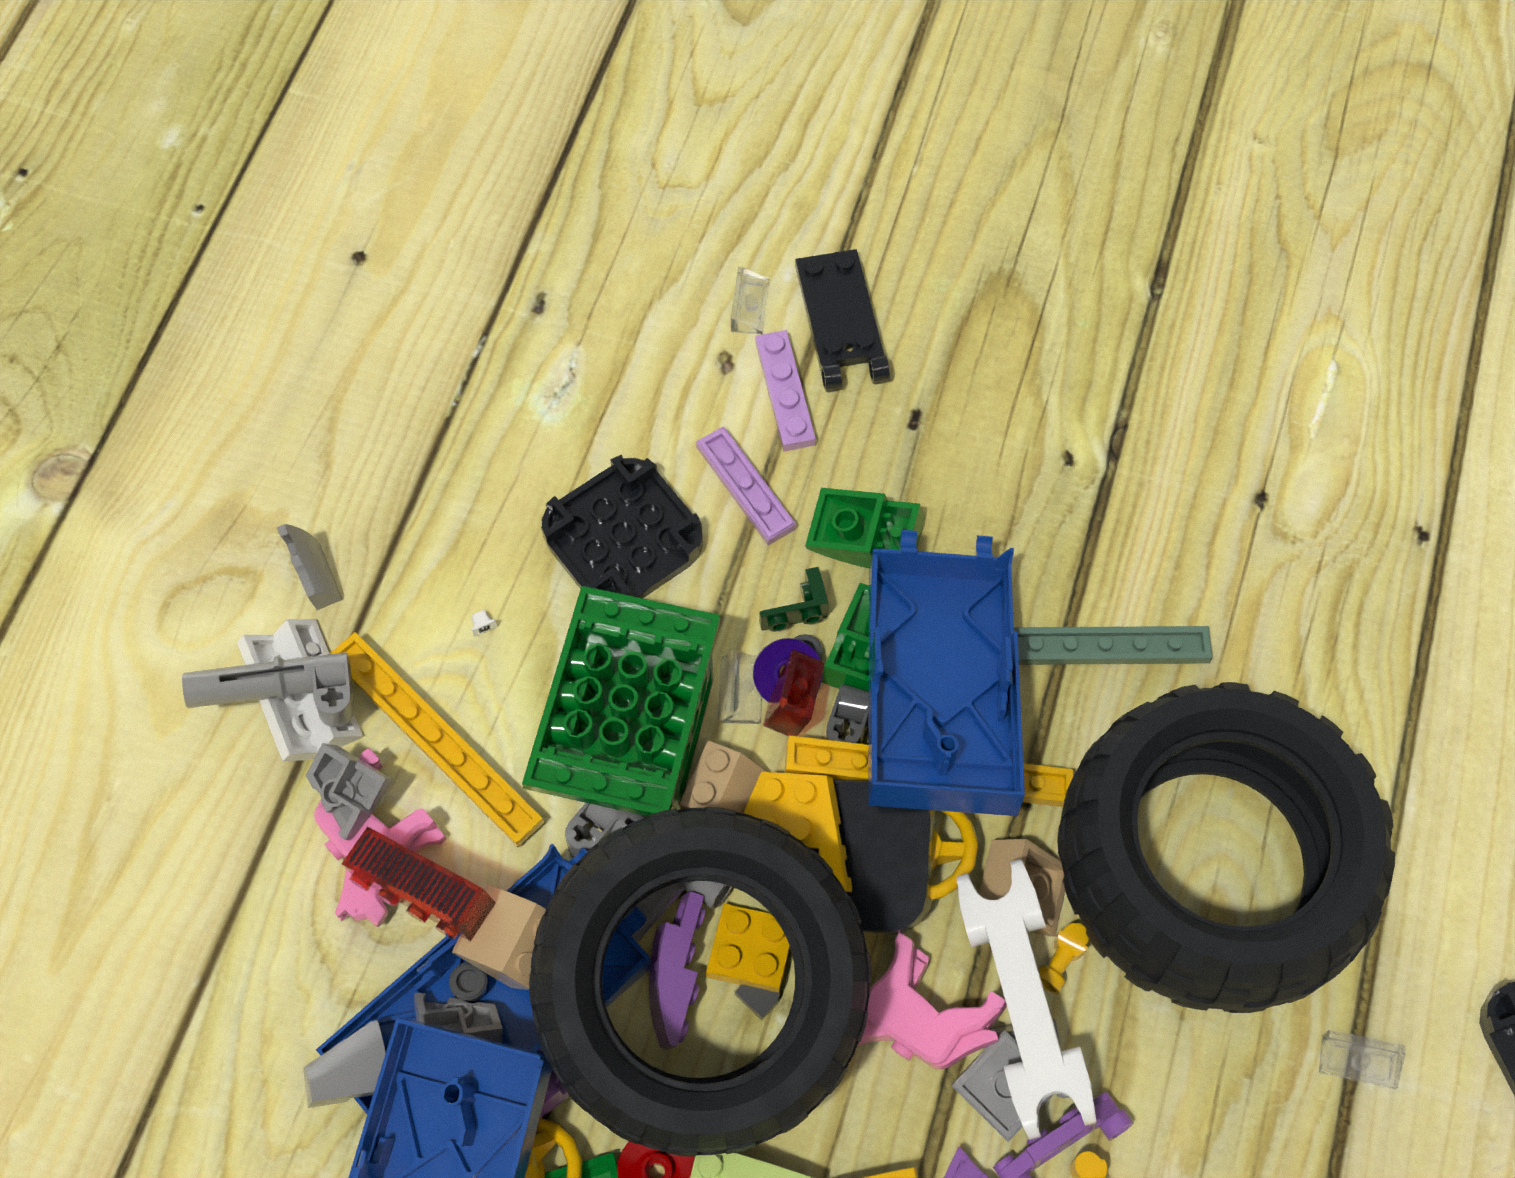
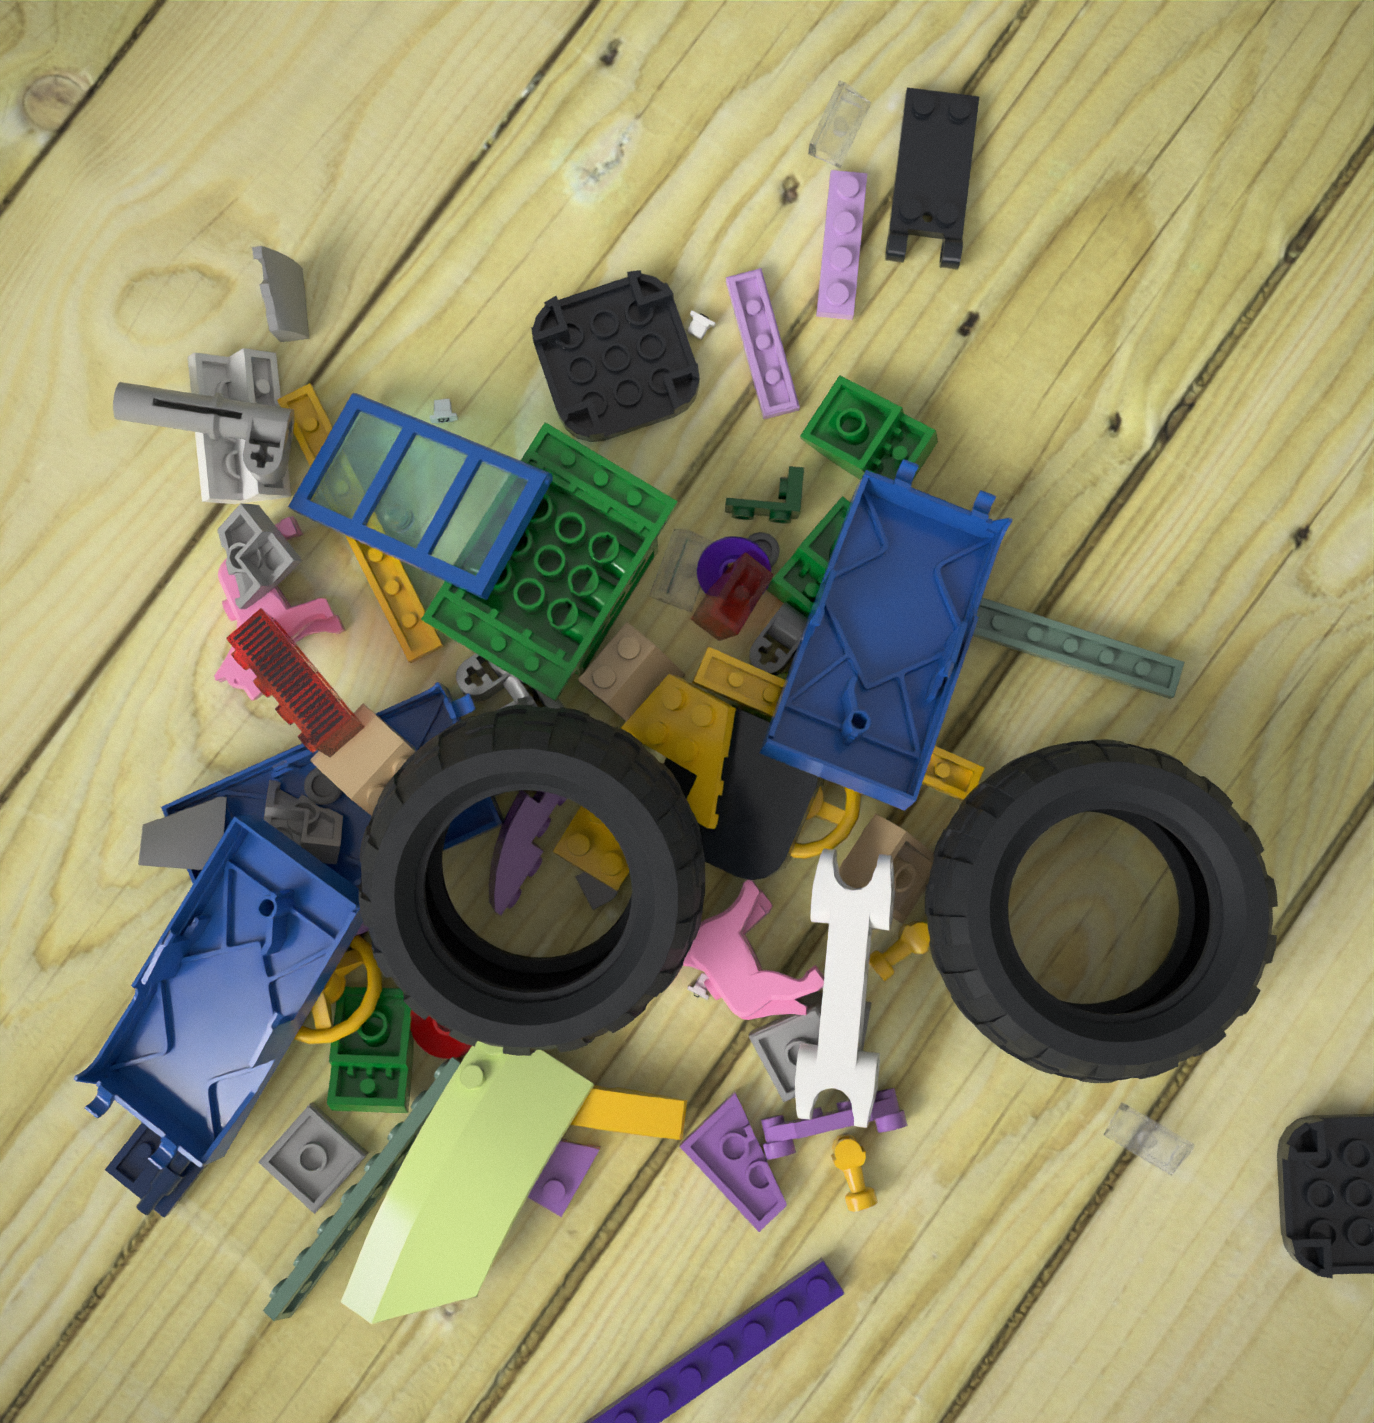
camera: 20 degrees right, 20 degrees up
(487, 683) = (421, 494): none -> door
(686, 486) = (699, 325): none -> white piece
(889, 1059) = (699, 987): none -> white piece

